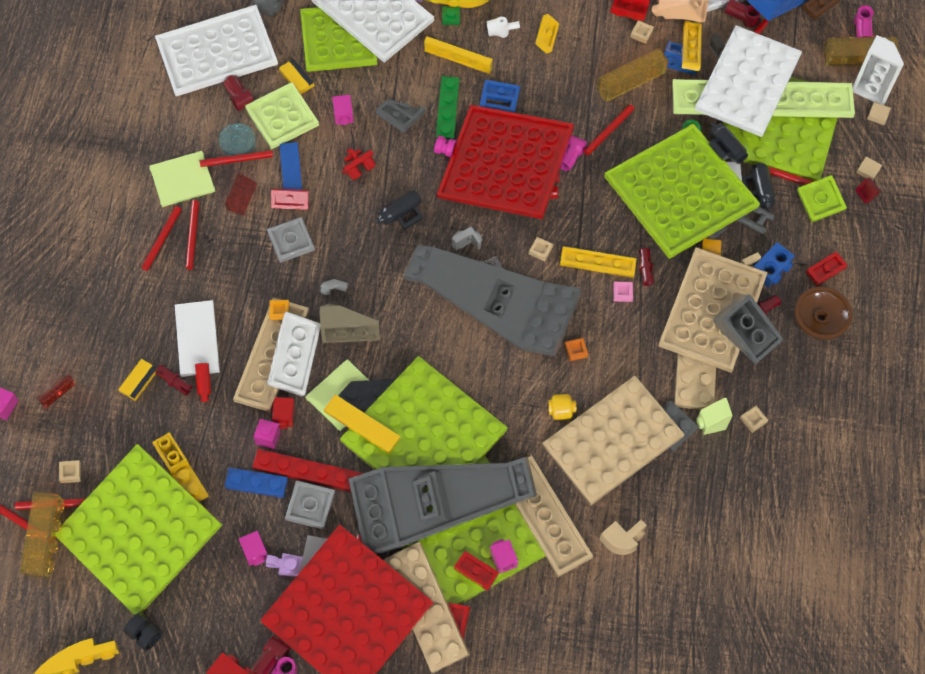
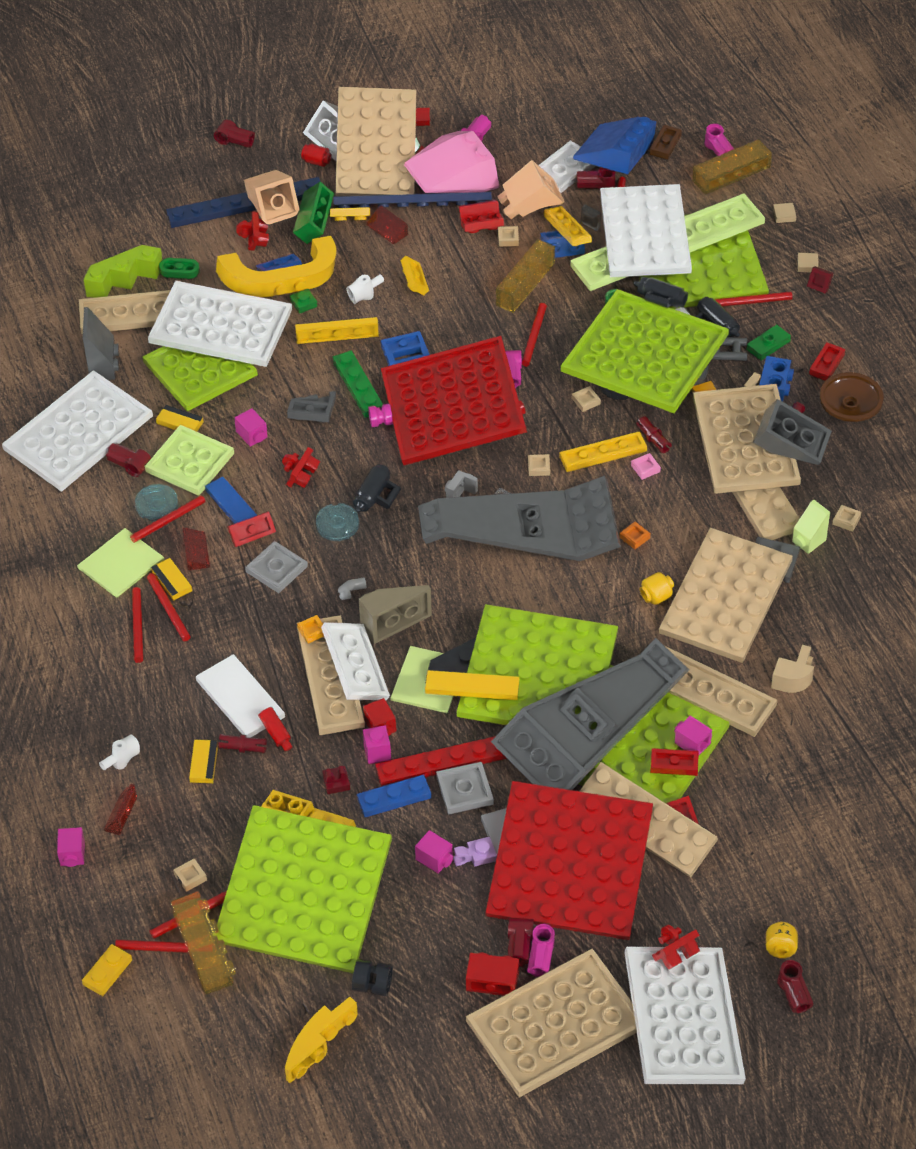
camera: 25 degrees left, 15 degrees down
(81, 343) = (122, 752): none -> white piece
(208, 212) = (171, 579): none -> yellow tile
(222, 446) = (336, 780): none -> dark red tile
(358, 223) = (337, 522): none -> clear light blue tile
(613, 208) = (586, 399): none -> tan tile
(791, 227) = (768, 342): none -> green plate
(821, 198) = (782, 304): lime plate -> none
(878, 71) = (766, 168): white slope -> none

